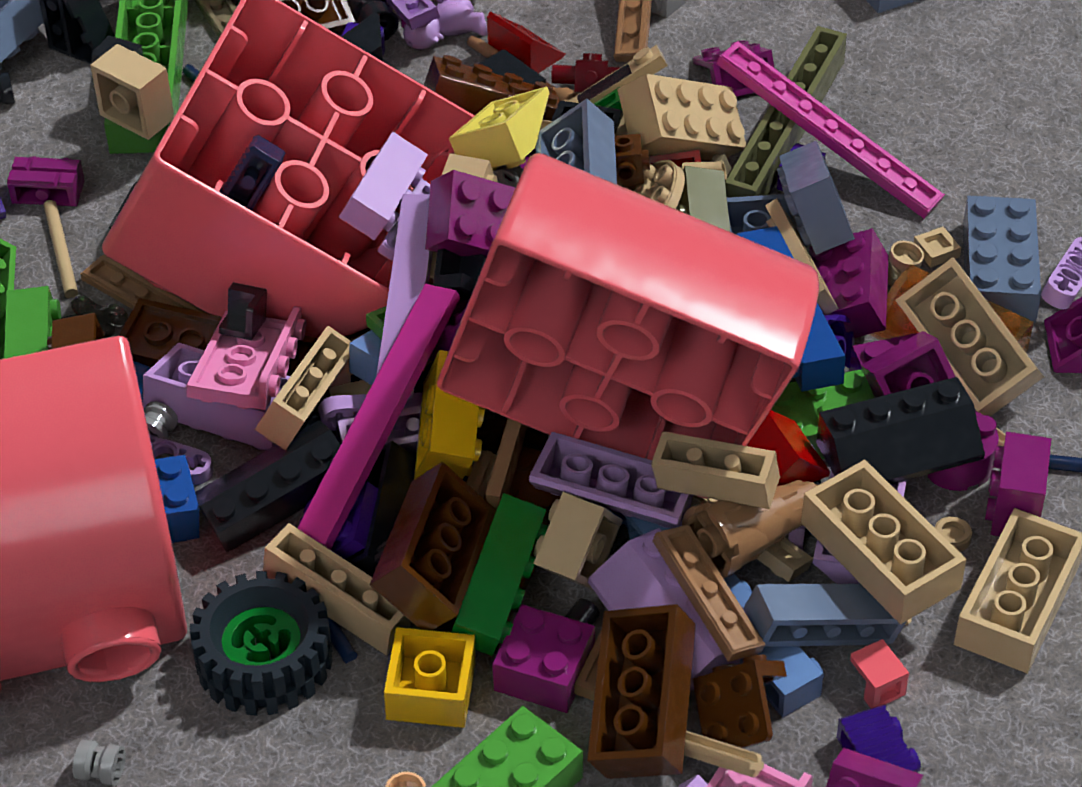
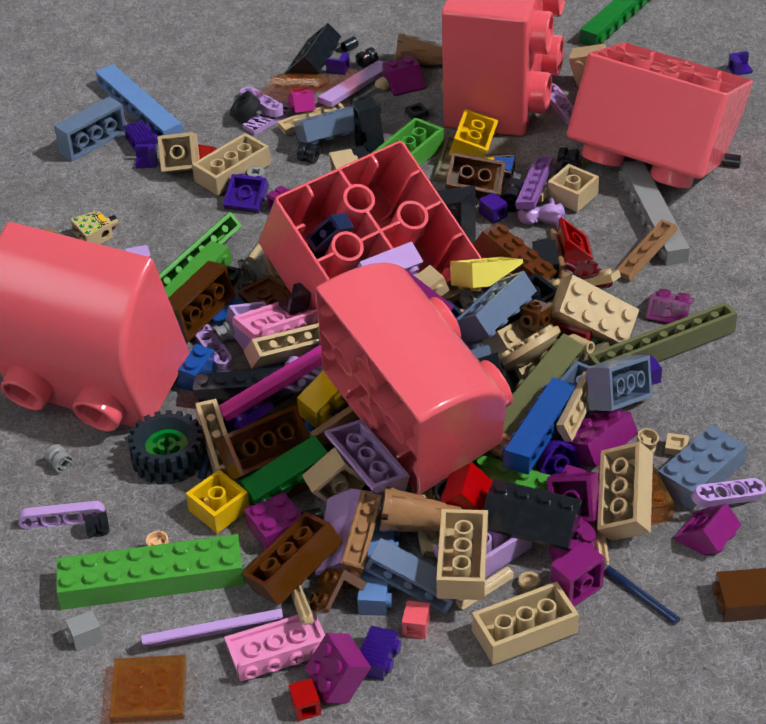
camera: 40 degrees right, 5 degrees down
(716, 470) = (404, 472): tan brick -> none
(830, 129) = (674, 357): dark pink tile -> none

